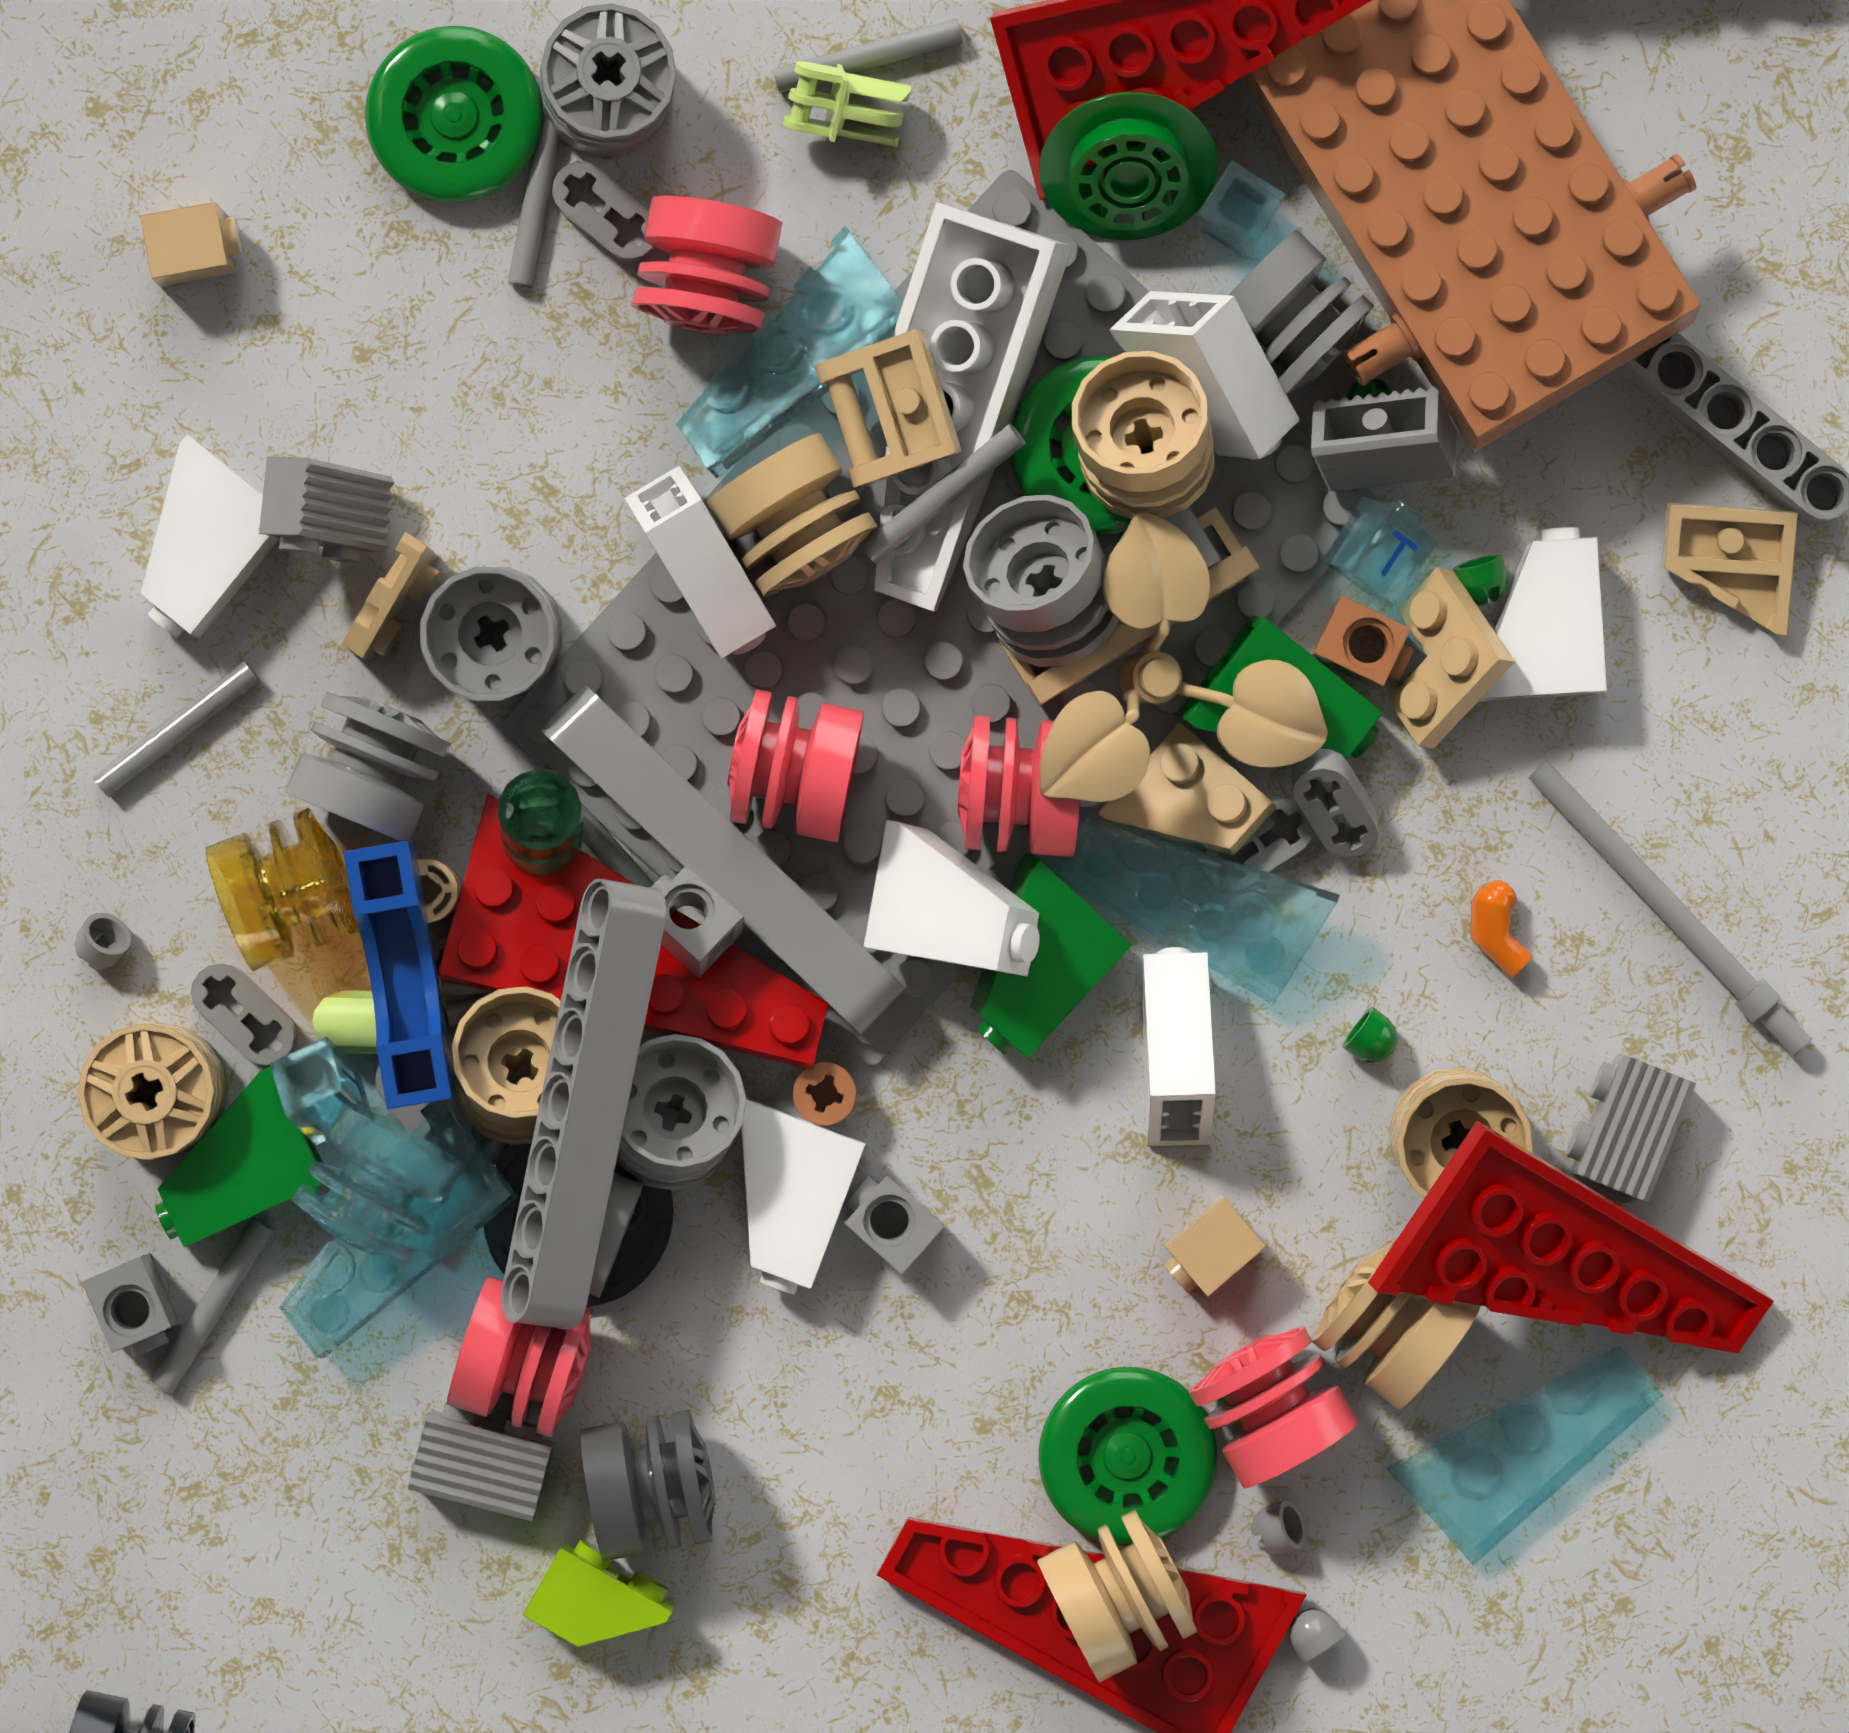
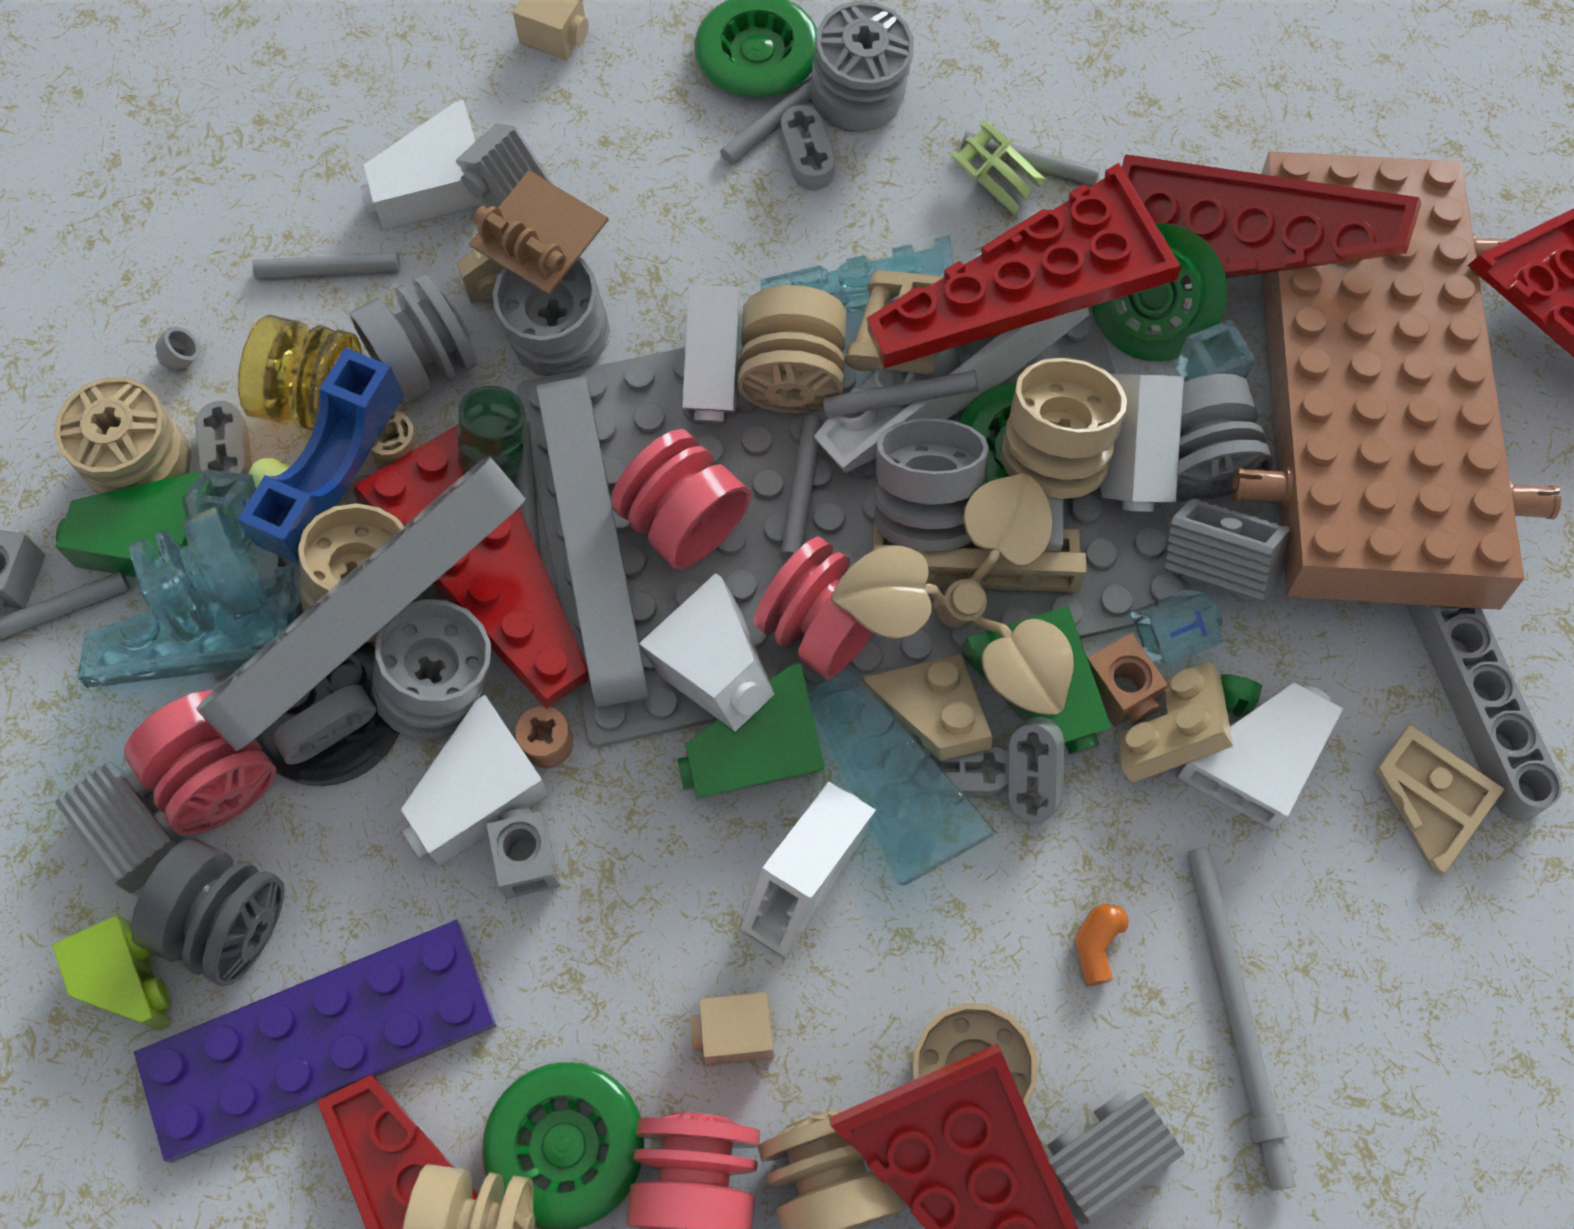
camera: 40 degrees right, 20 degrees down
(434, 573) = (537, 231): none -> medium nougat hinge
(705, 944) = (538, 570): light grey brick -> none
(706, 265) = (847, 190): coral wheel -> none
(825, 1522) = (312, 1040): none -> dark purple plate
(896, 650) = (801, 487): none -> light grey bar
(1016, 254) = (1042, 268): none -> red wing
(1372, 1037) = (955, 957): green hinge -> none

